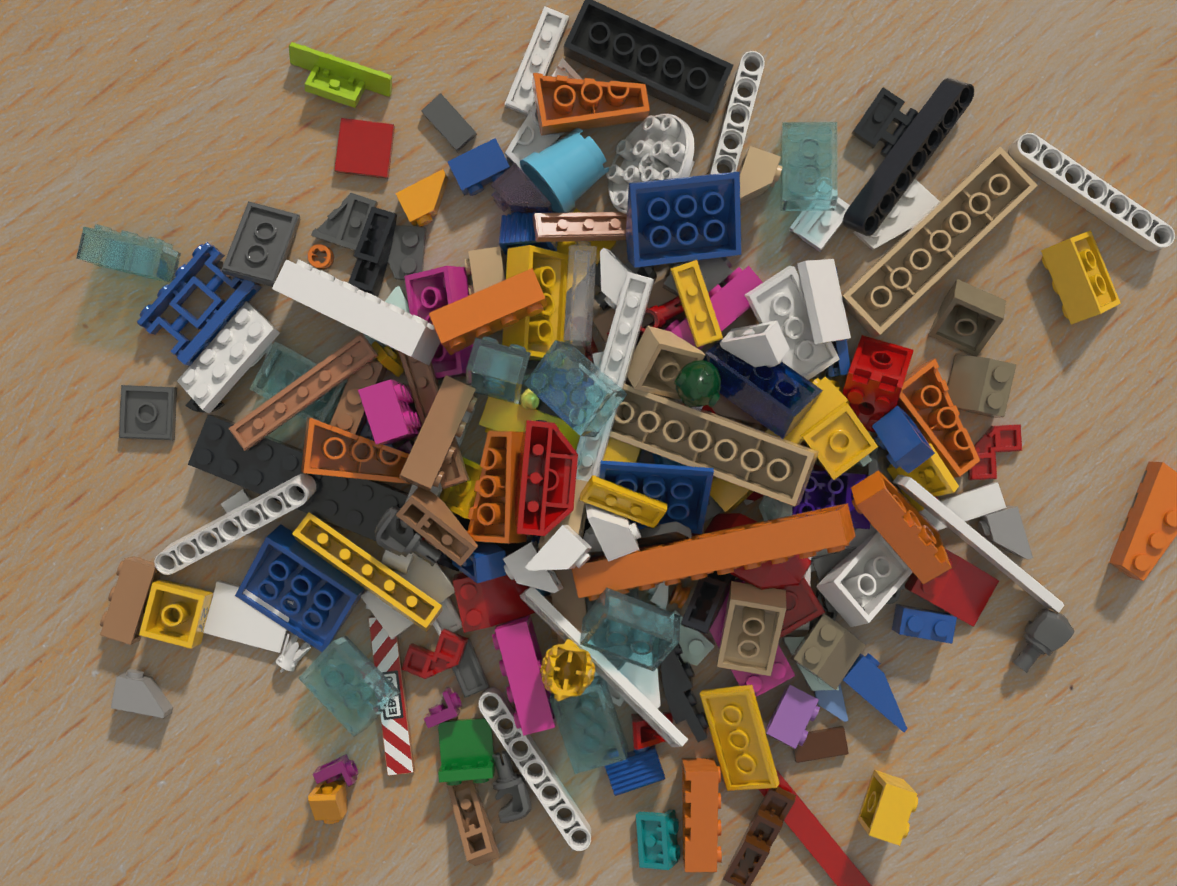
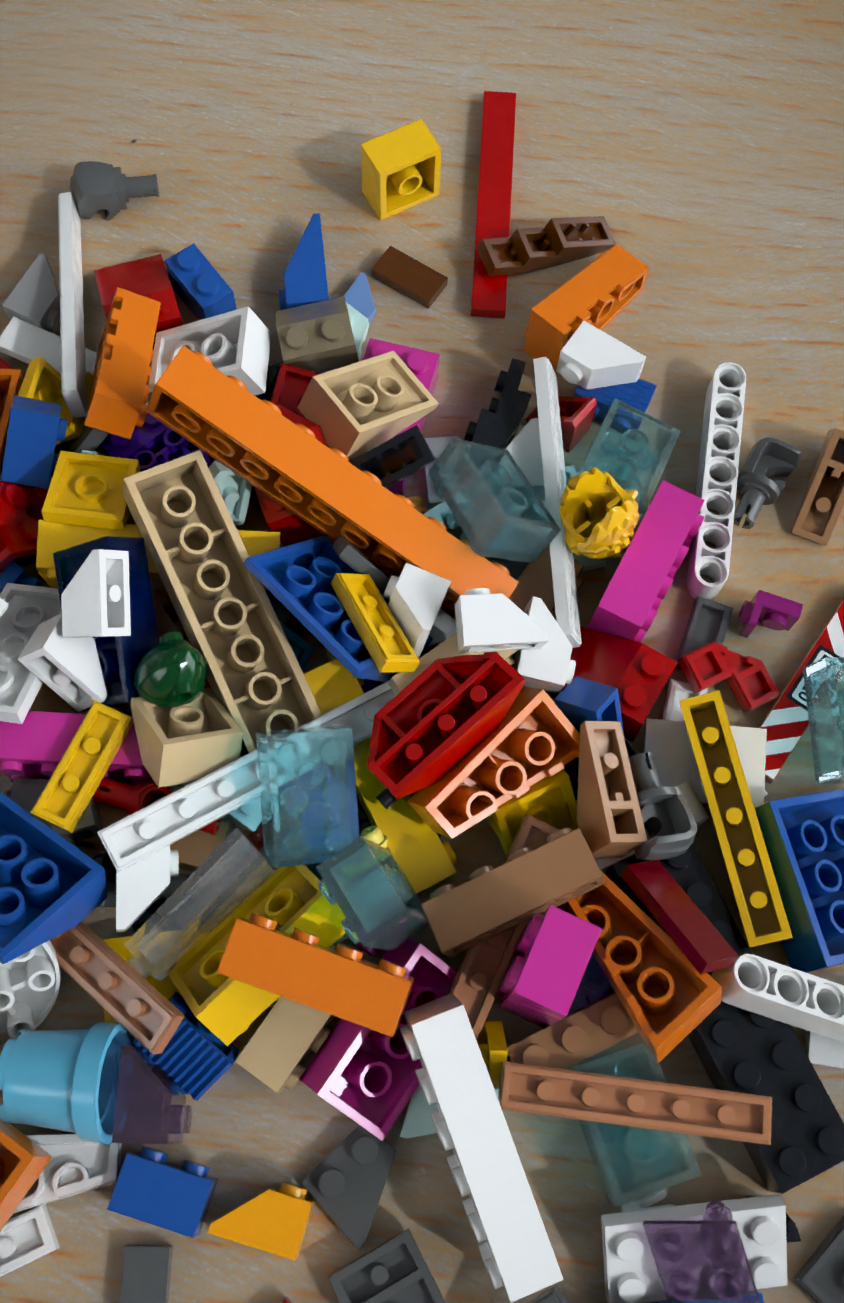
camera: 145 degrees left, 20 degrees down
(220, 353) = (702, 1258): none -> clear purple hinge
(324, 249) = (452, 1282): orange bush -> none
(351, 492) = (679, 916): none -> dark red tile
(373, 251) = (391, 1211): black slope -> none
(466, 751) = (780, 550): green bracket -> none
(657, 776) = (598, 359): none -> white slope
(658, 839) = (650, 320): teal bracket -> none
(739, 738) = (479, 335): yellow tile -> none
(762, 381) = (98, 597): none -> white slope
(792, 717) = (411, 312): medium lavender brick -> none

